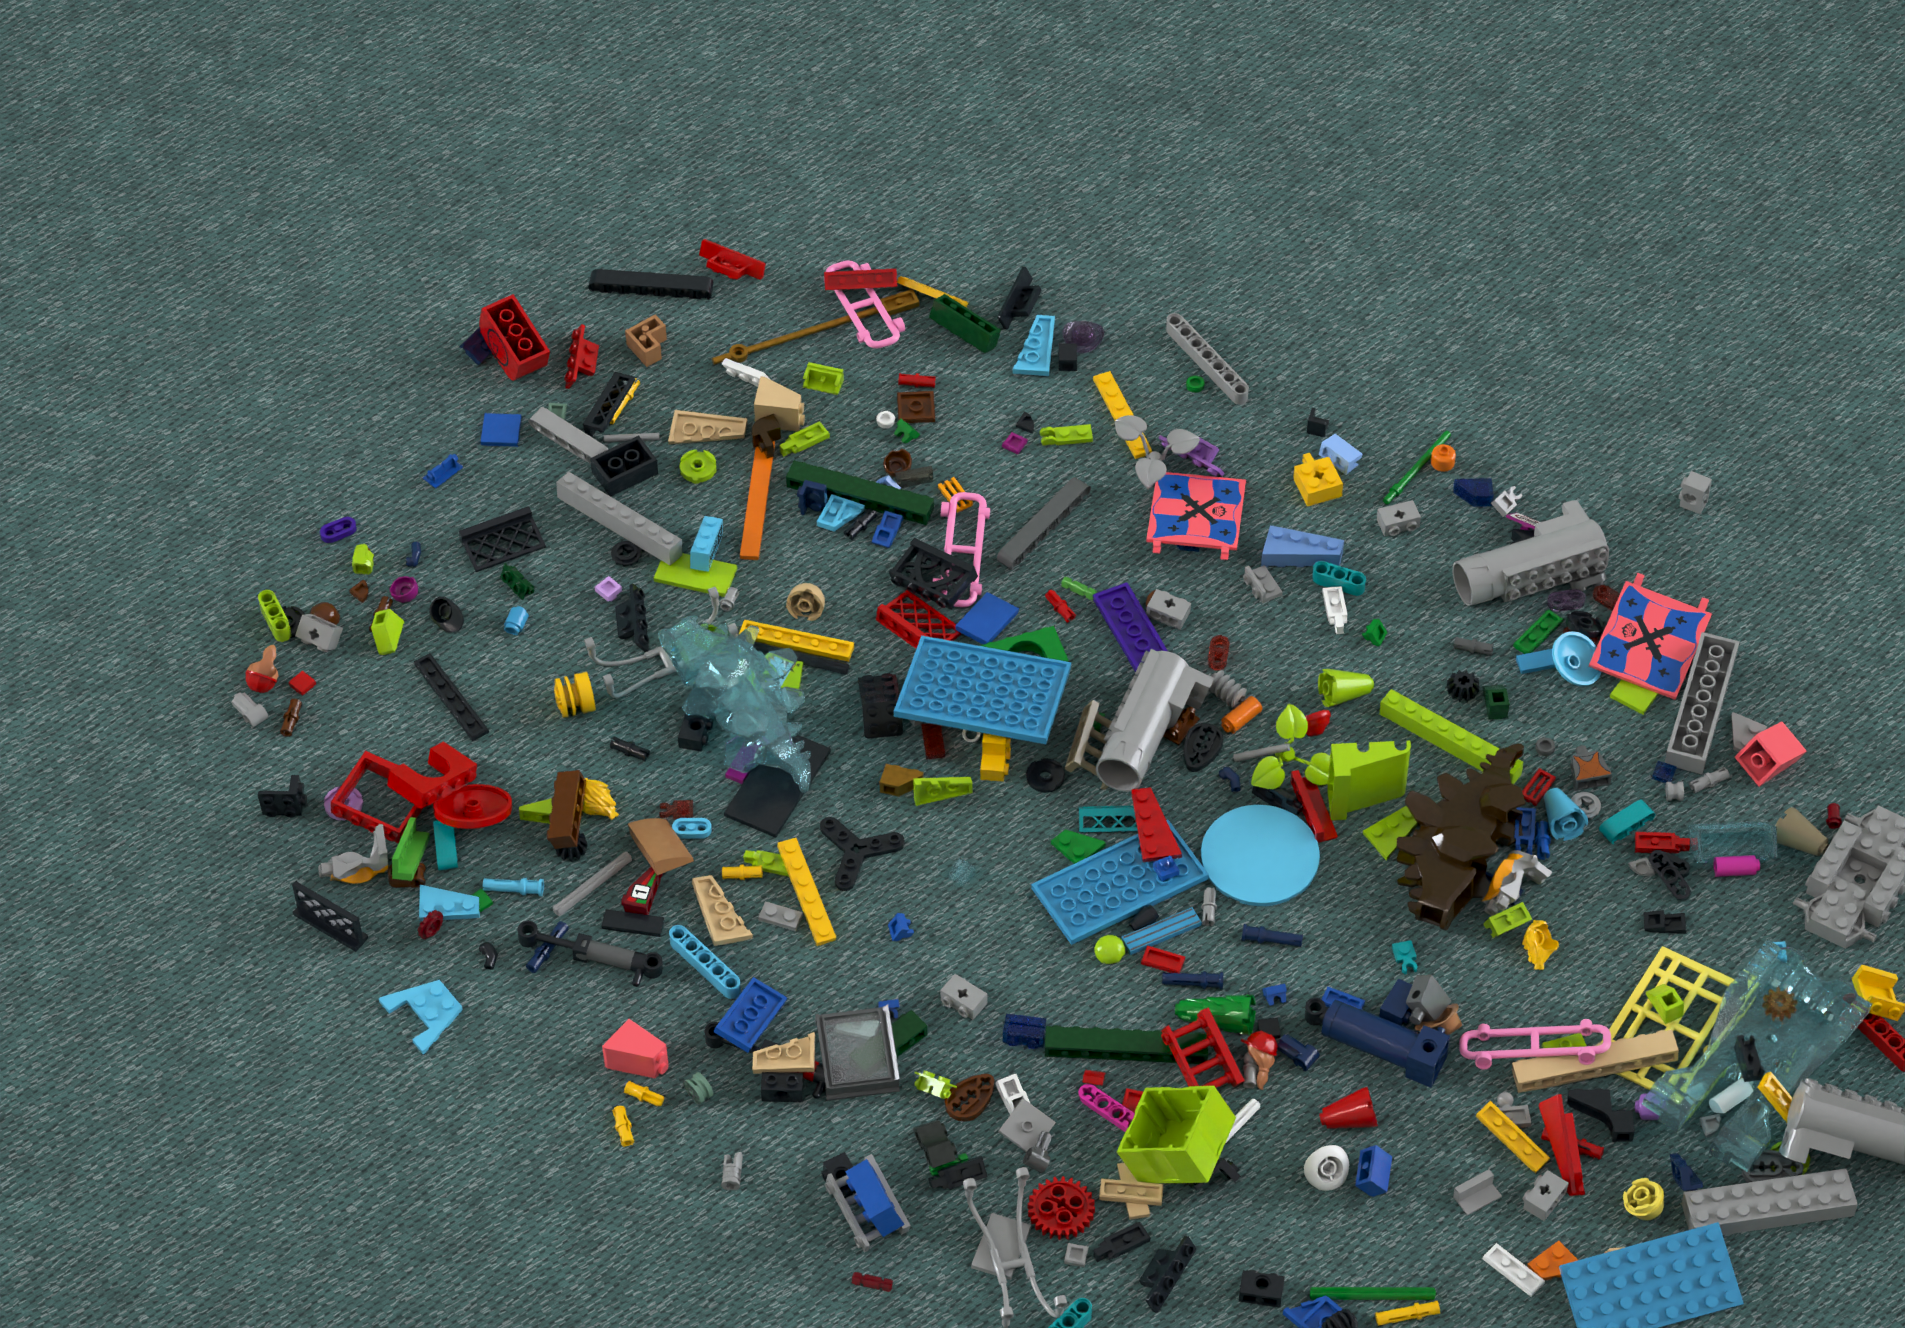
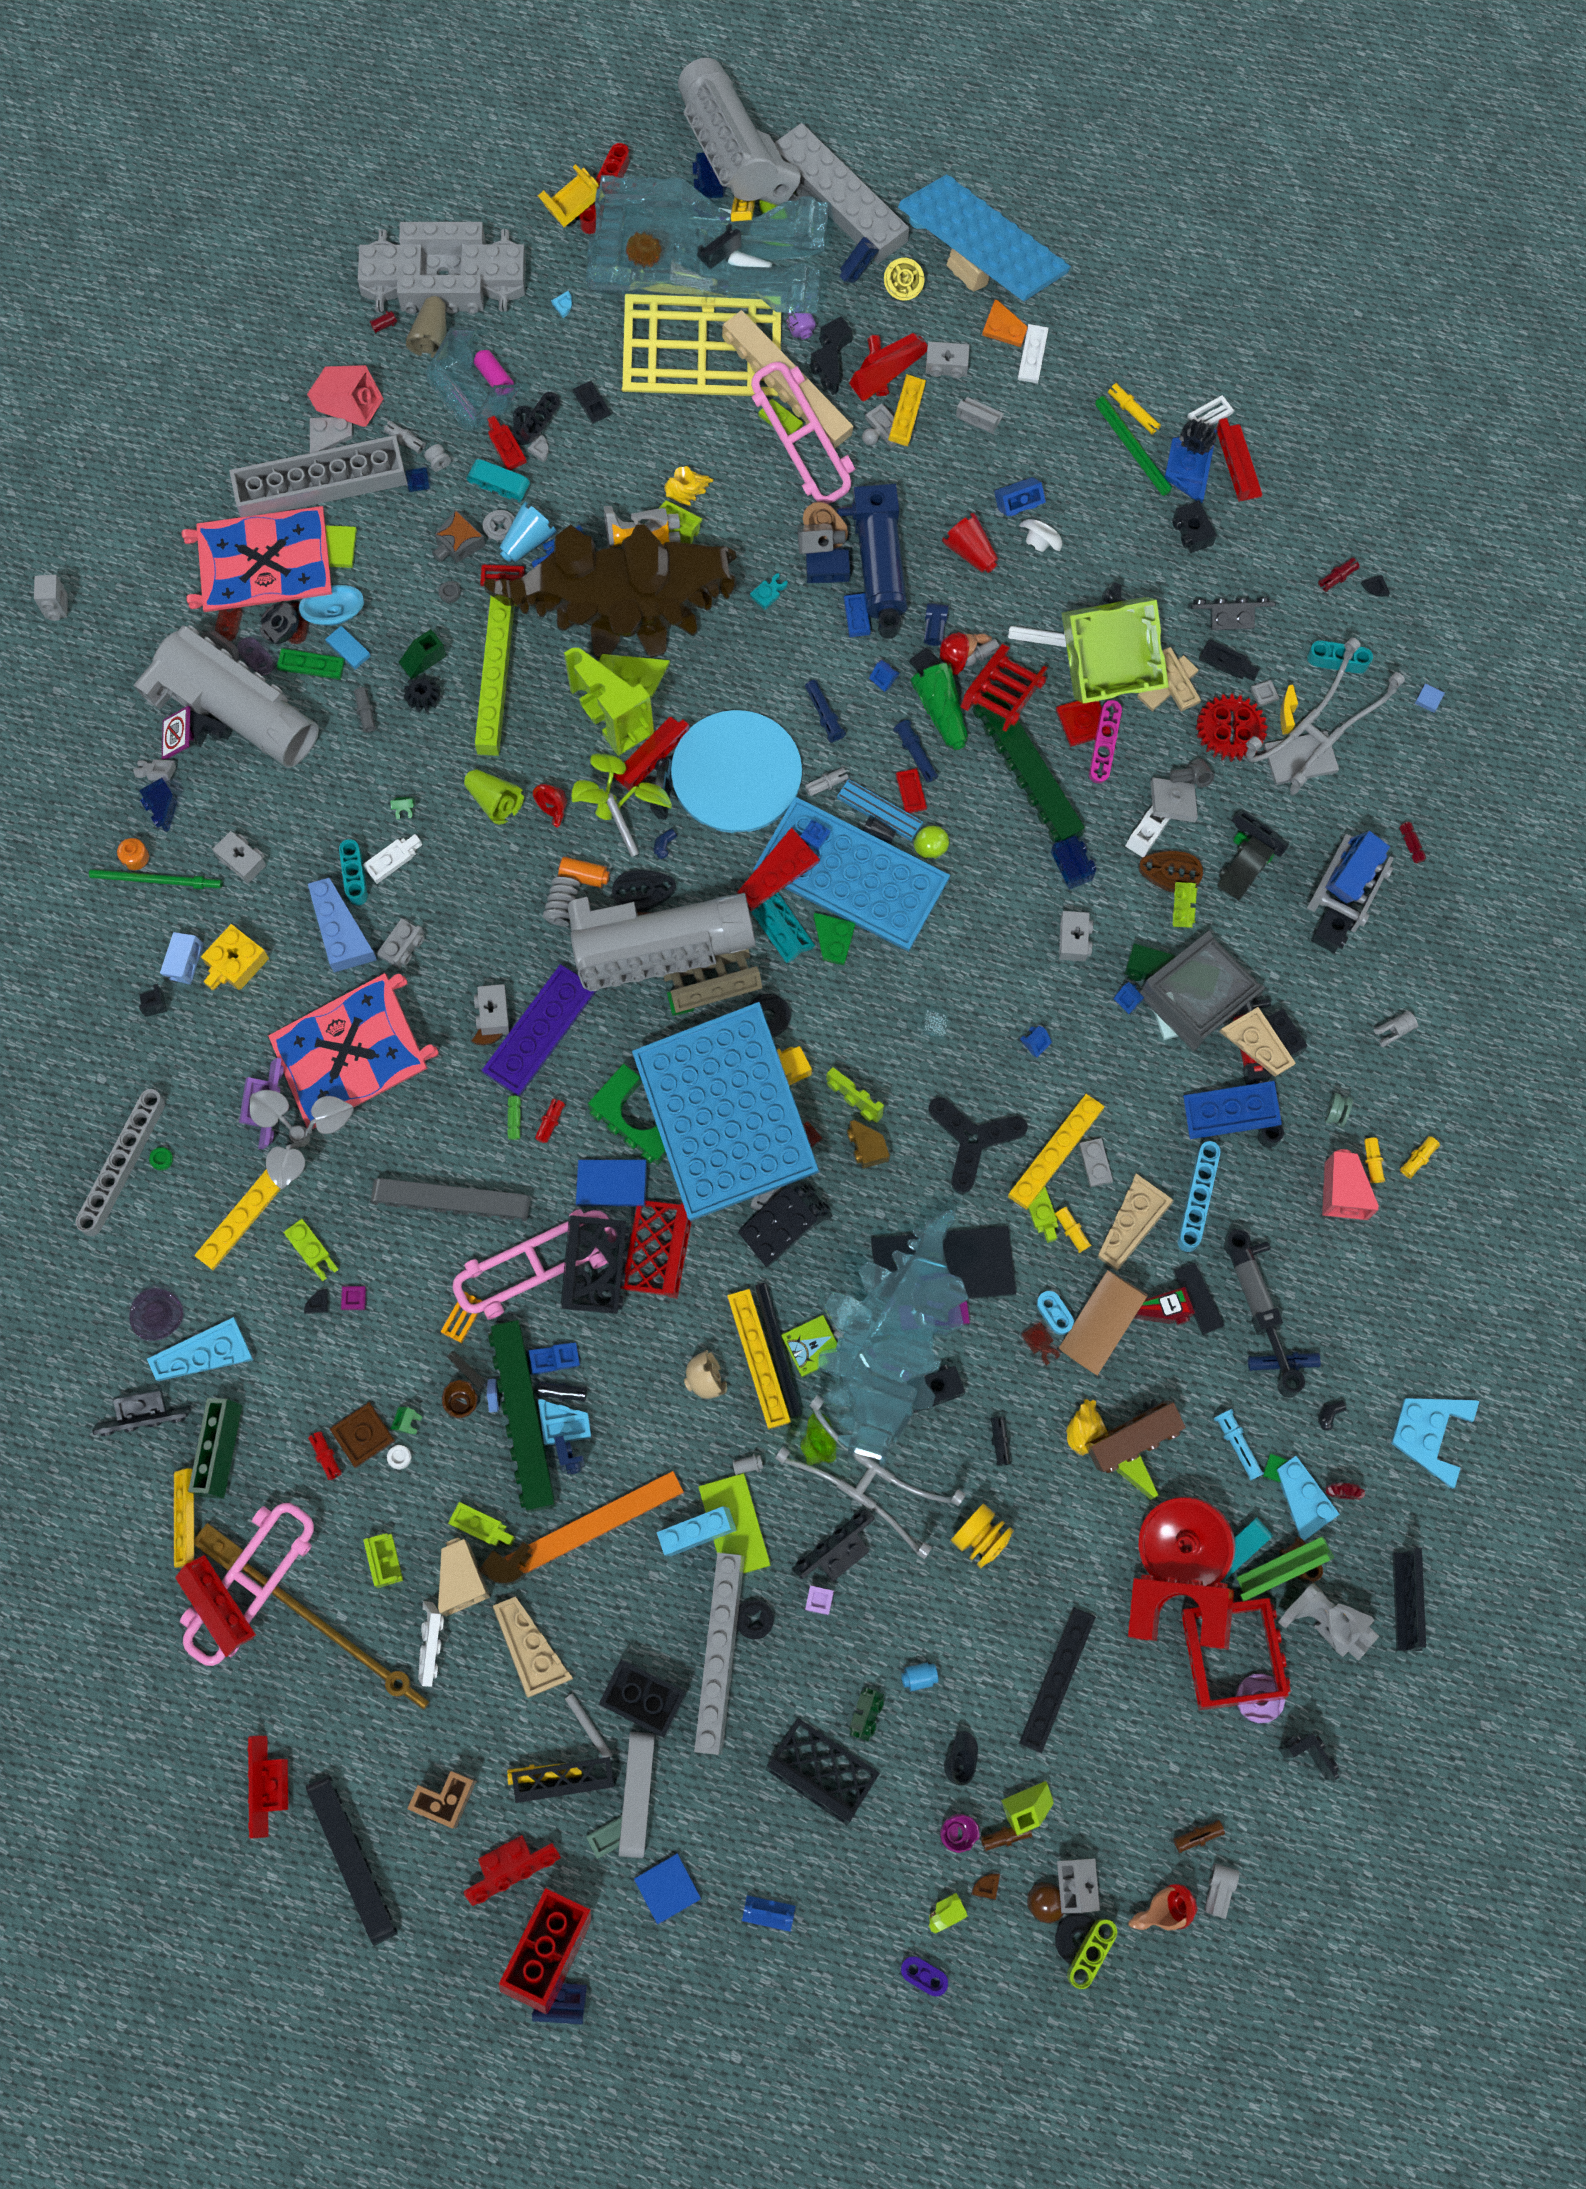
camera: 125 degrees left, 20 degrees up
(302, 683) = (1146, 1860): red tile -> none
(416, 552) = (900, 1858): dark blue arm -> none
(592, 883) = (1182, 1369): light grey axle -> none
(701, 474) = (594, 1633): lime plate -> none
(1052, 1259) = (1288, 707): none -> yellow slope
(1067, 357) = (199, 1310): black brick -> none
(1093, 1077) = (1080, 776): red tile -> none
(1218, 654) = (516, 935): clear red plate -> none
(1666, 1002) = (691, 348): lime slope -> none

